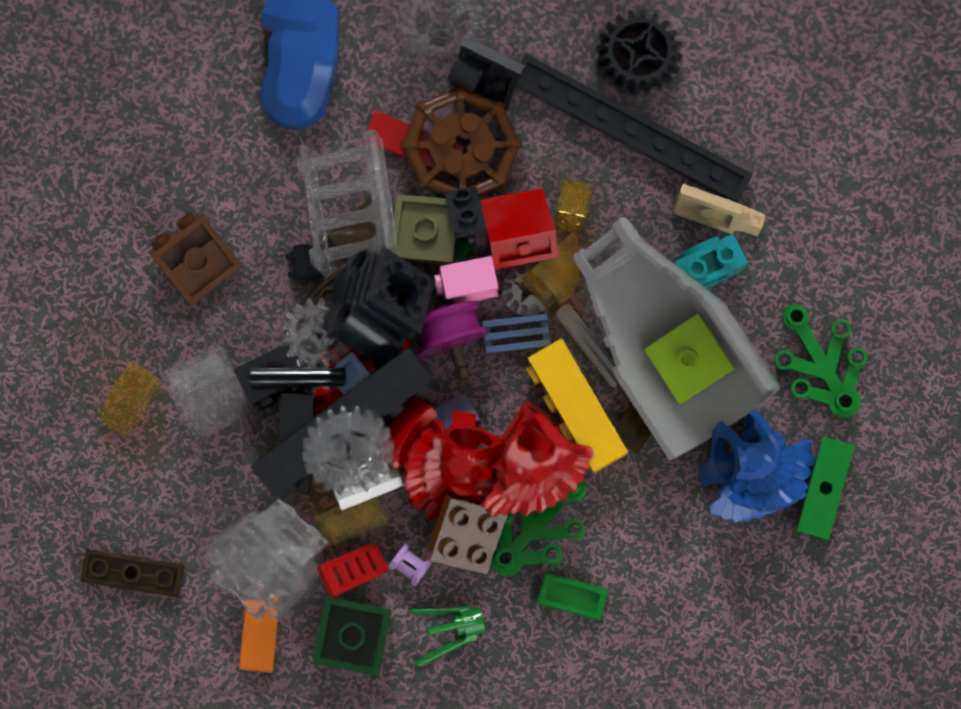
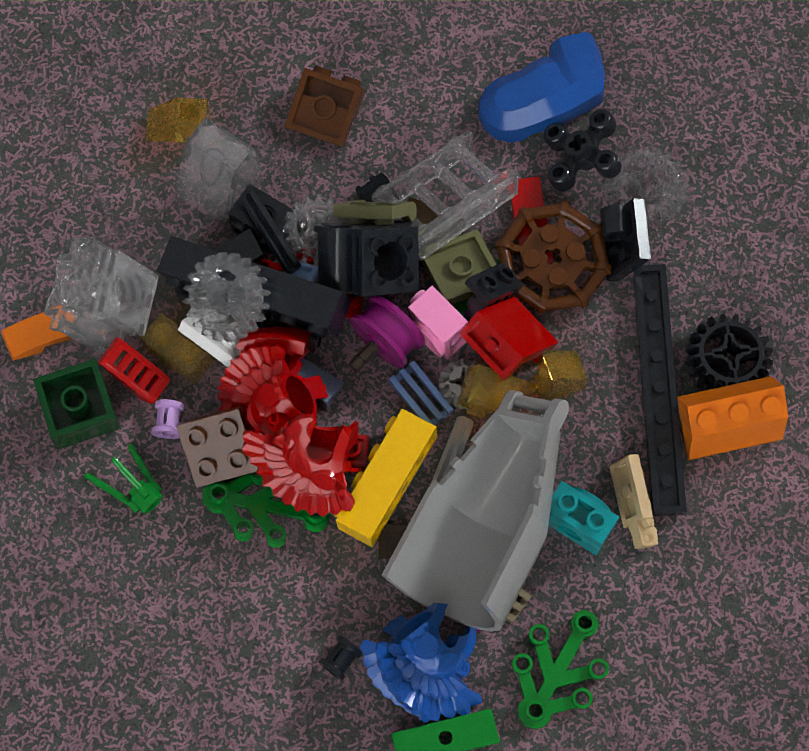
camera: 65 degrees right, 10 degrees down
(152, 576) = (42, 221): dark brown tile -> none
(343, 270) = (383, 213): none -> olive plate
(387, 53) = (582, 150): none -> black gear
(572, 596) = (219, 572): green tile -> none
(690, 358) = (480, 541): lime plate -> none
(695, 83) = (733, 417): none -> orange slope
(708, 526) = (340, 657): none -> black bush

